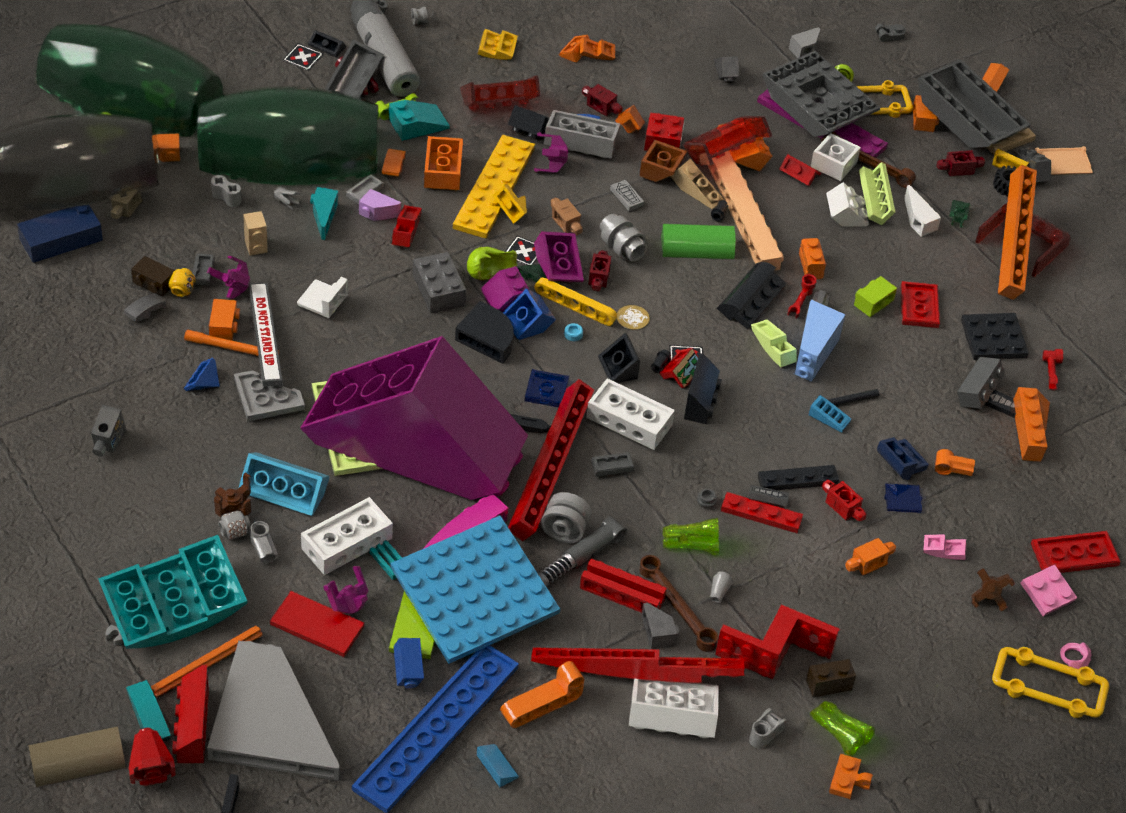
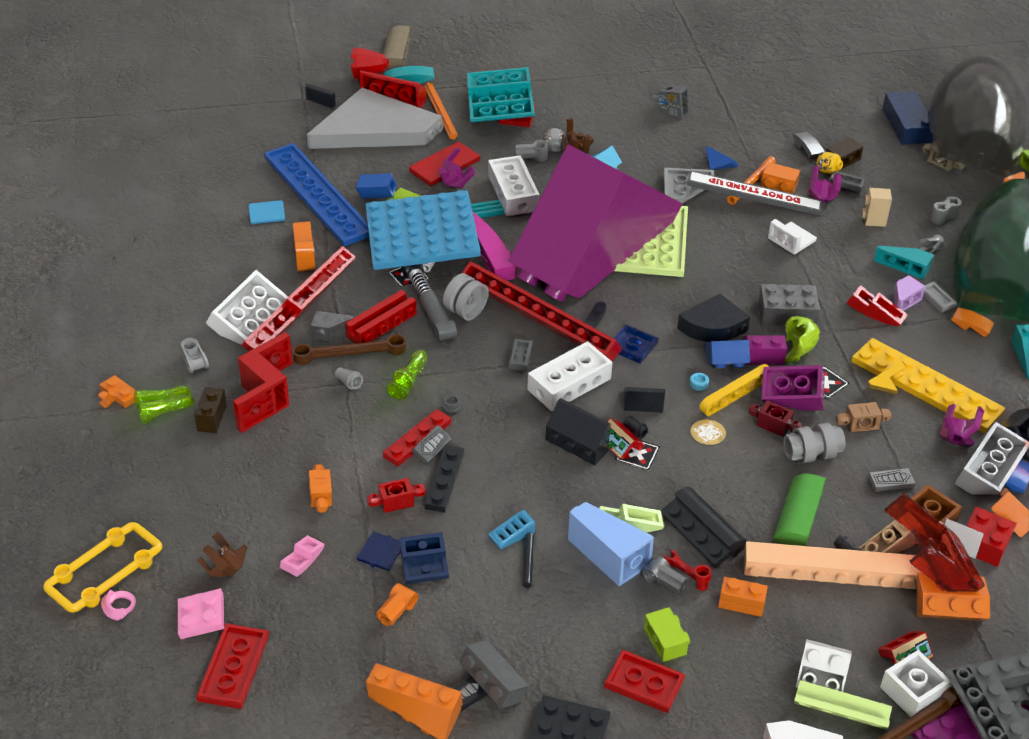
camera: 115 degrees right, 5 degrees down
(443, 163) = (958, 346): orange brick -> none

